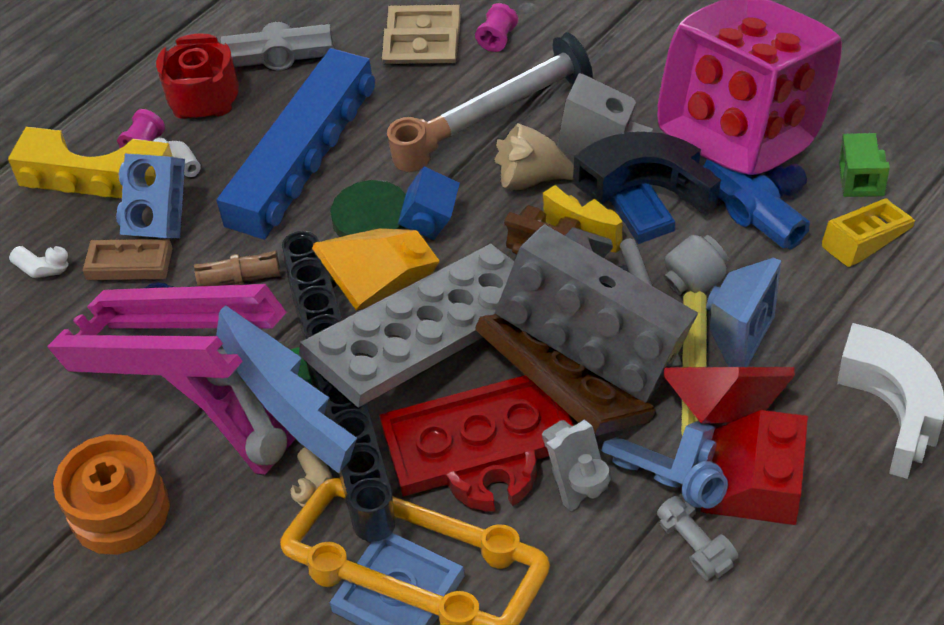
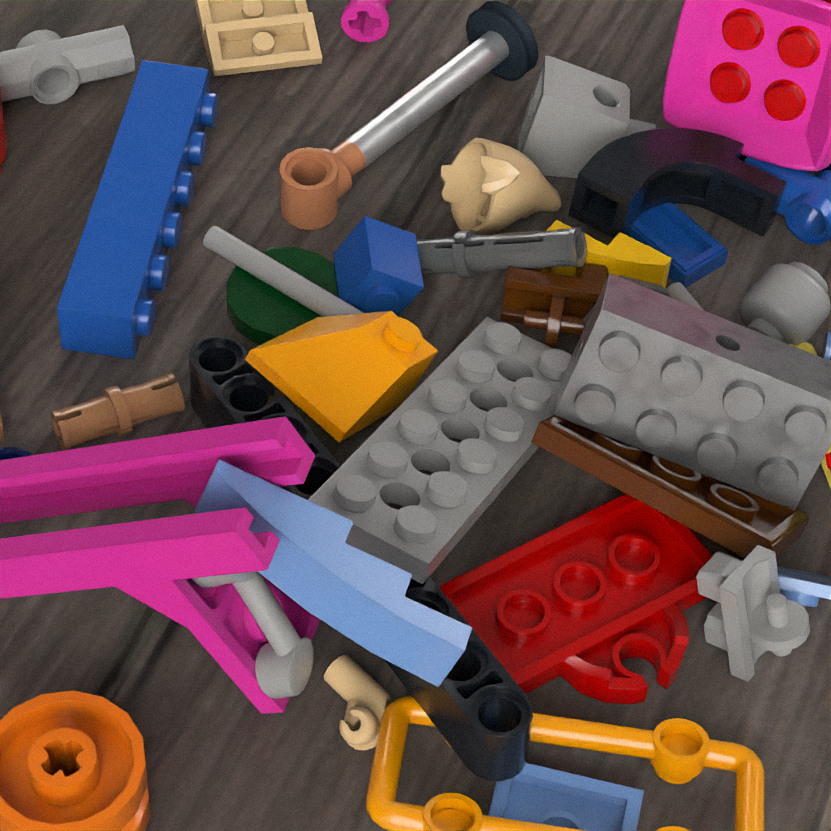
camera: 25 degrees left, 0 degrees up
(364, 197) = (276, 274): none -> light grey bar
(493, 201) = (473, 253): none -> dark grey pin

